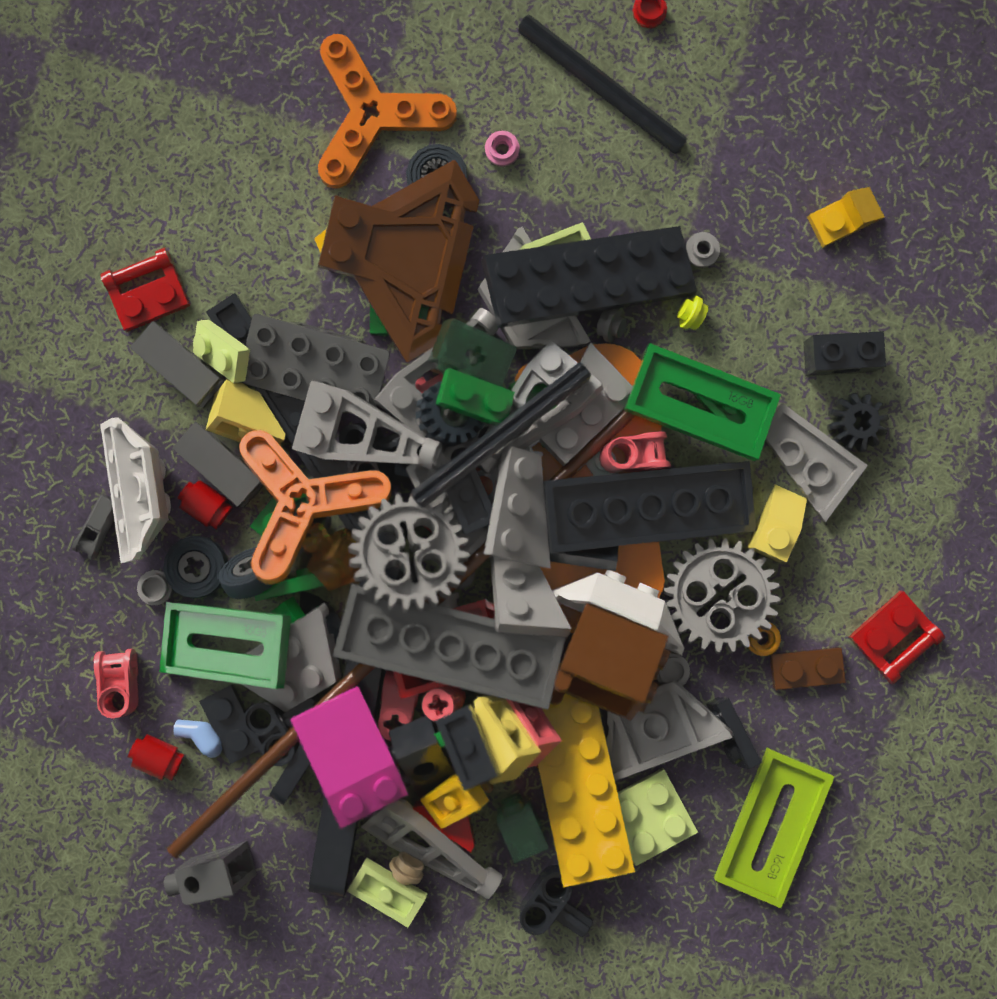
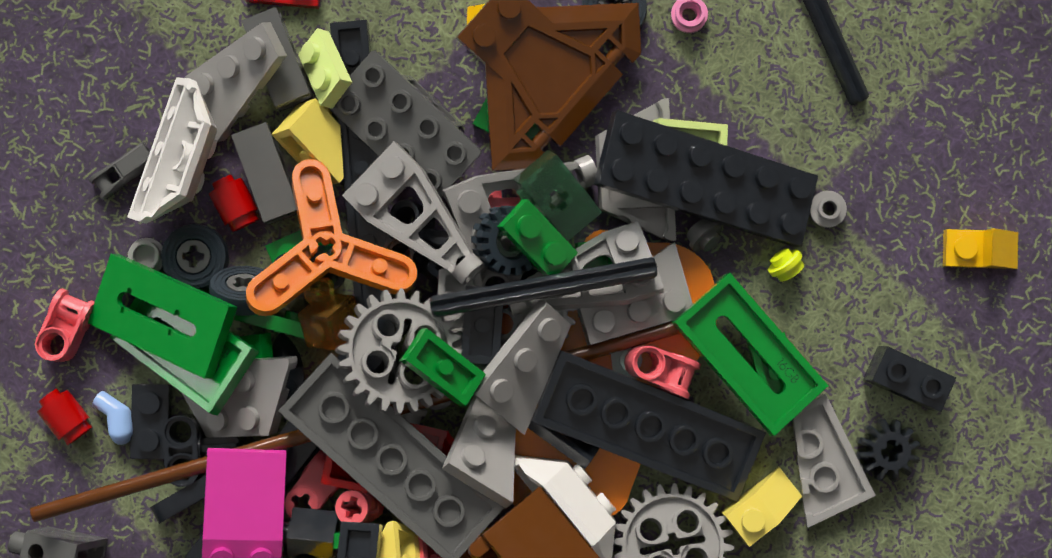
camera: 25 degrees right, 0 degrees up
(150, 394) = (236, 74): none -> light grey wing
(230, 606) = (208, 314): none -> green piece
(452, 545) = (443, 367): none -> green plate

